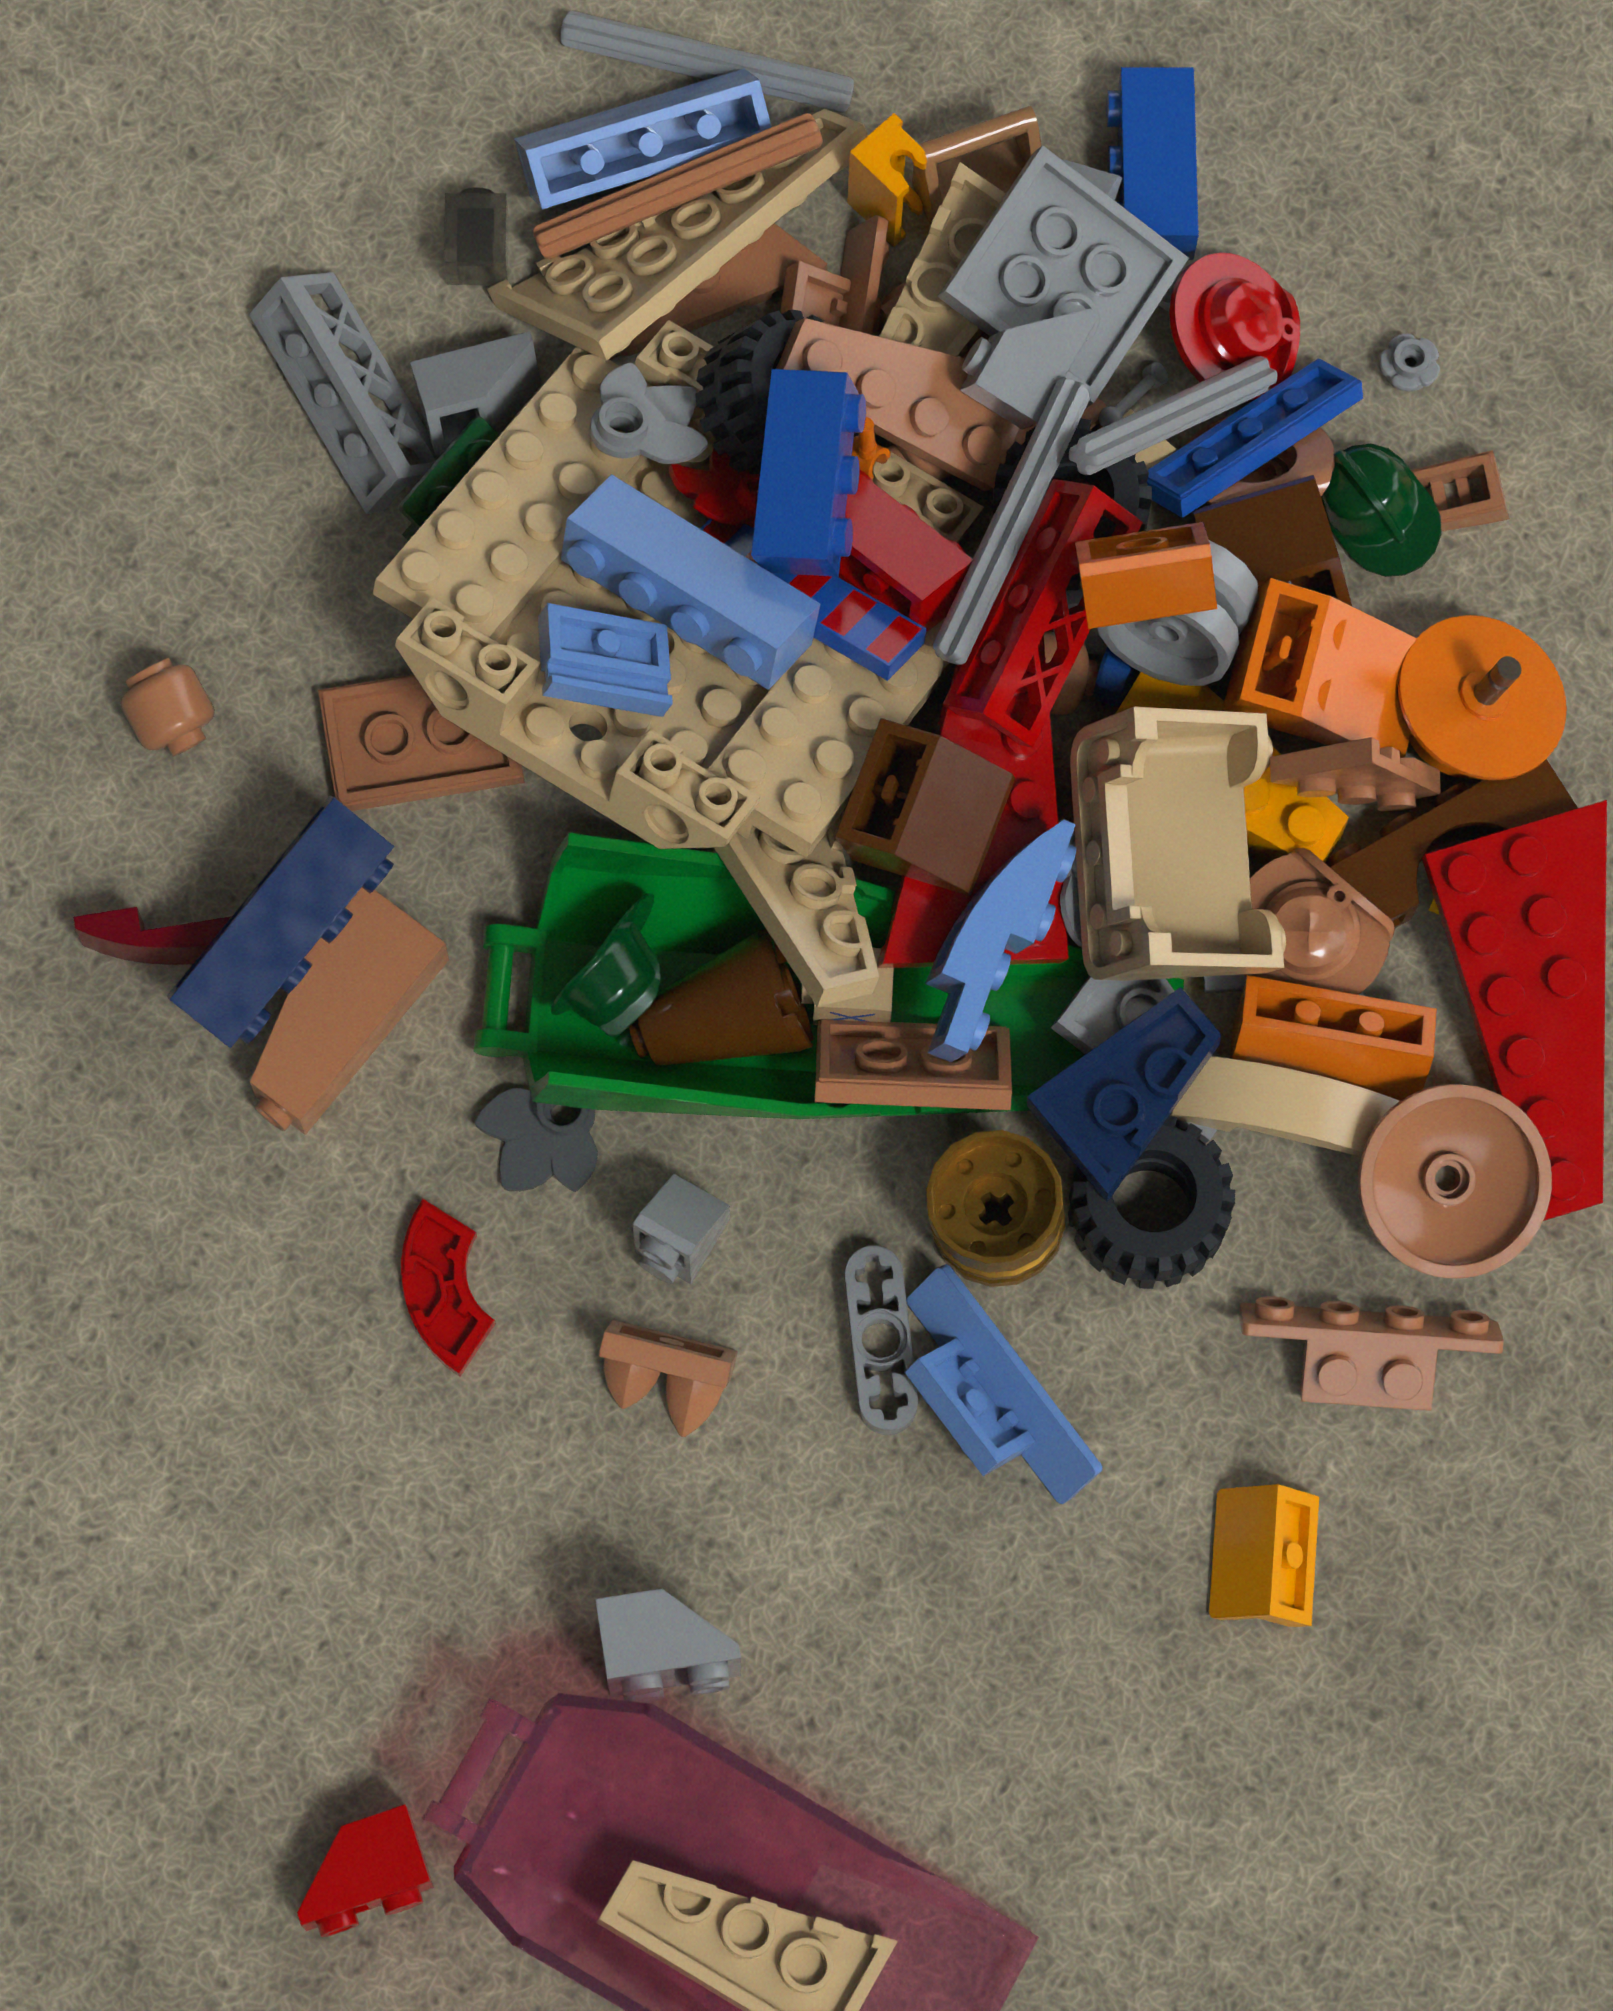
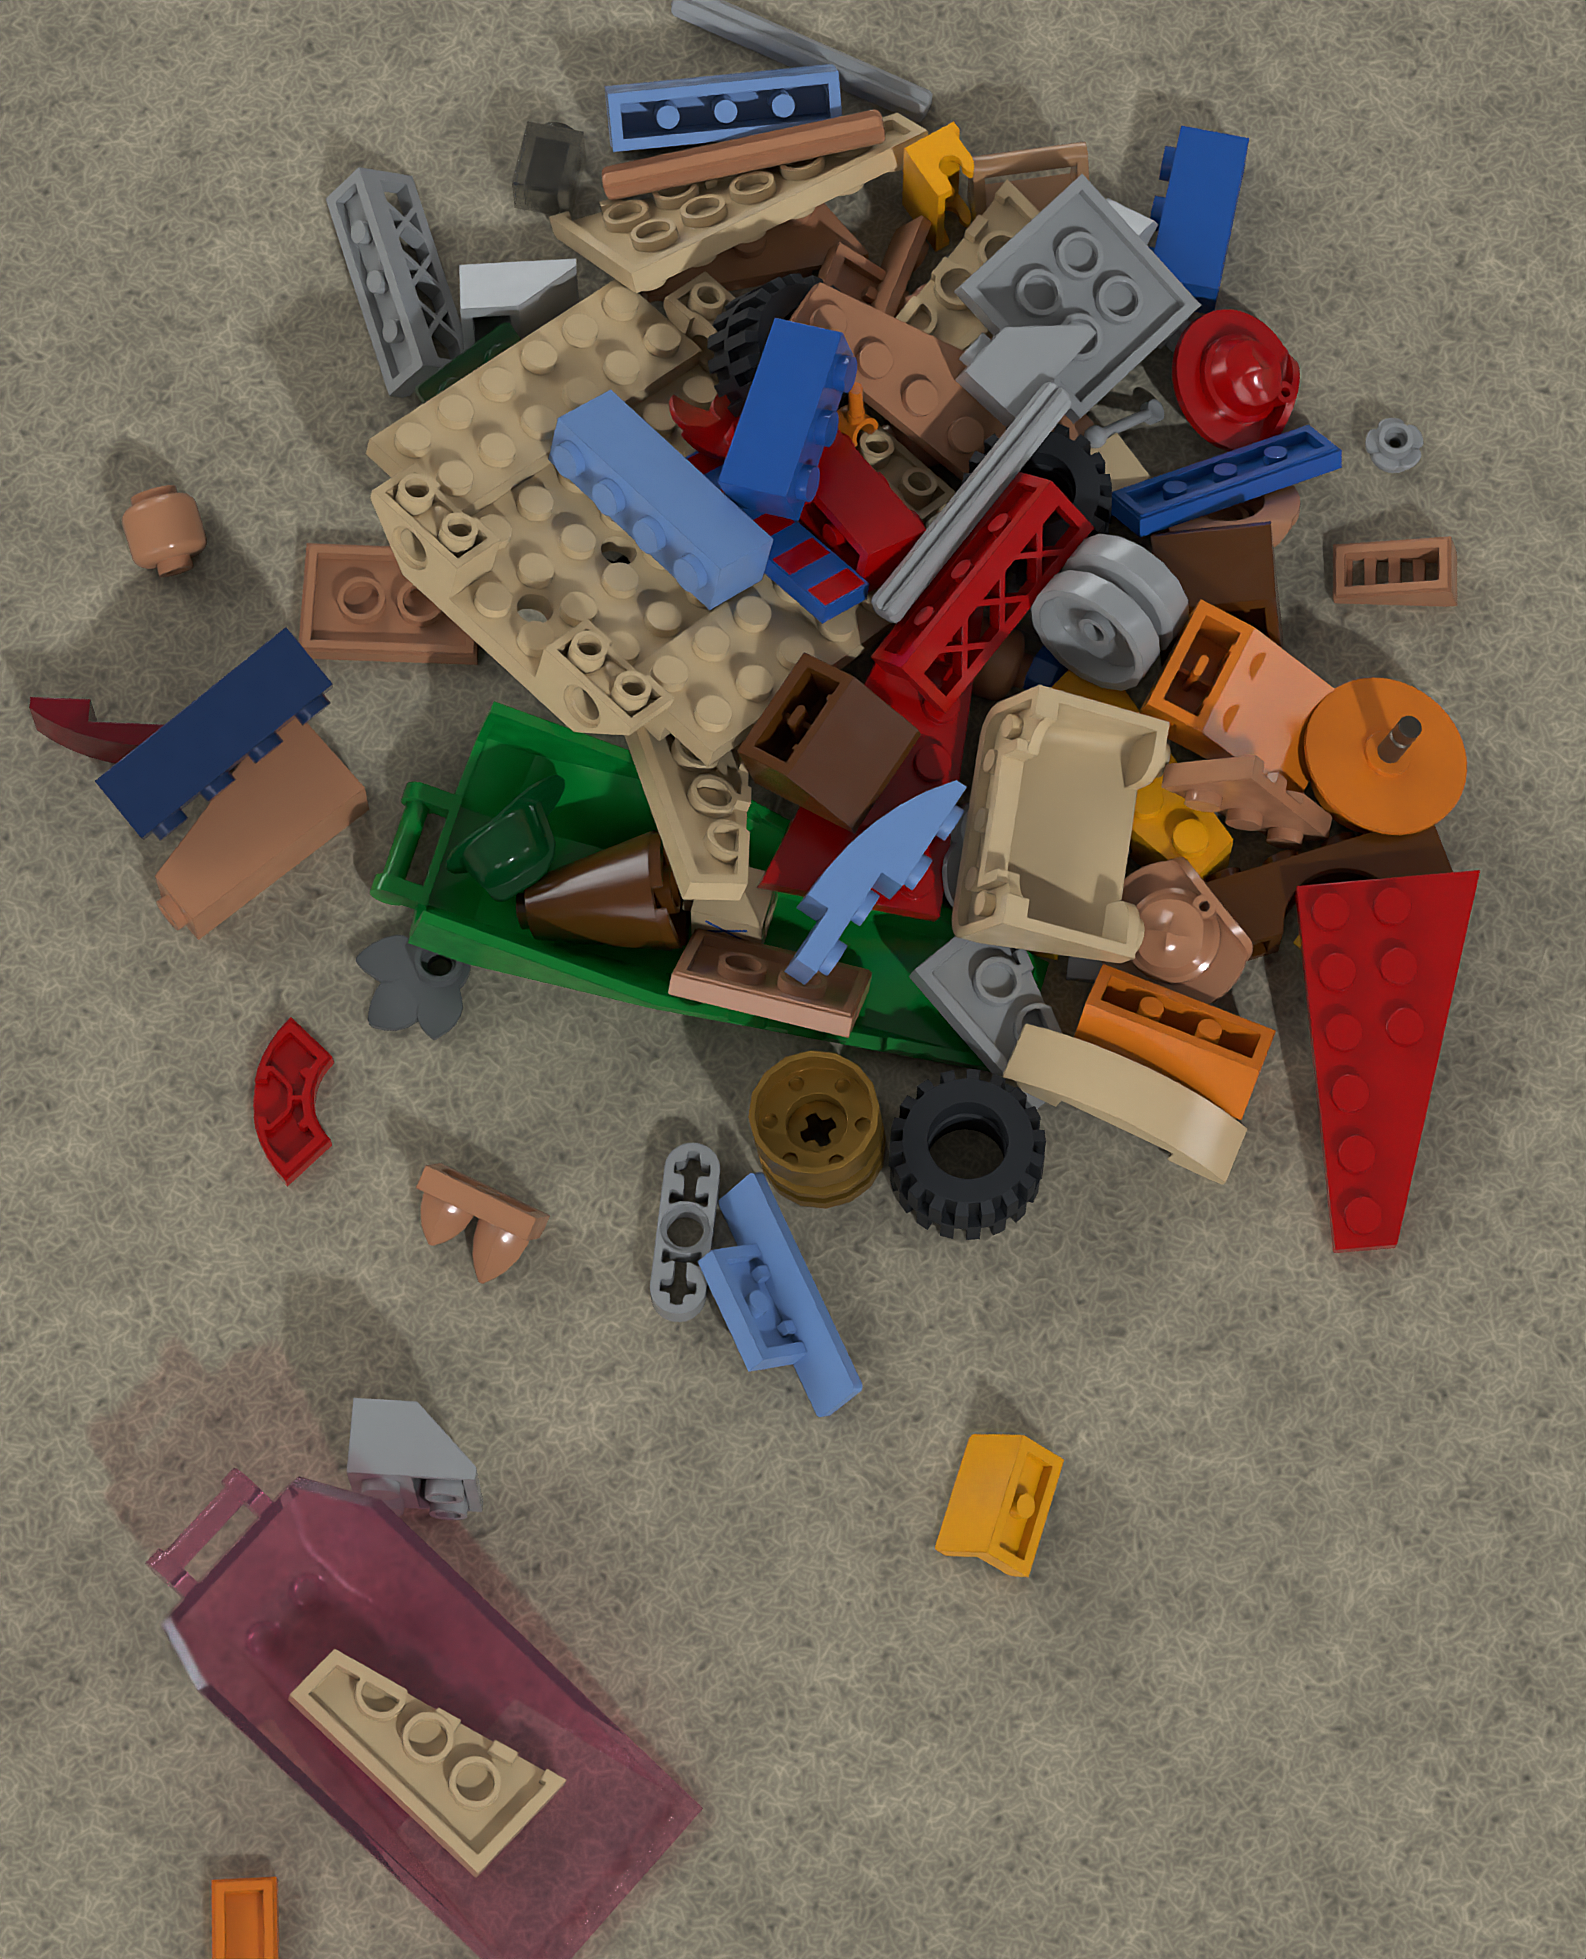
camera: 15 degrees right, 5 degrees down
(367, 1867) = (88, 1609): red slope -> none
(604, 660) = (561, 550): medium blue plate -> none
(651, 416) = (658, 351): light grey plate -> none
(678, 1230) = (518, 1090): light grey slope -> none
(1125, 1089) = (962, 1041): dark blue wing -> none
(1146, 575) = (1077, 569): orange slope -> none
(1172, 415) = (1148, 439): light grey axle -> none
(1368, 1354) = (1140, 1339): nougat bracket -> none
(1381, 511) = (1333, 572): dark green piece -> none
(1497, 1187) = (1302, 1199): nougat dish -> none

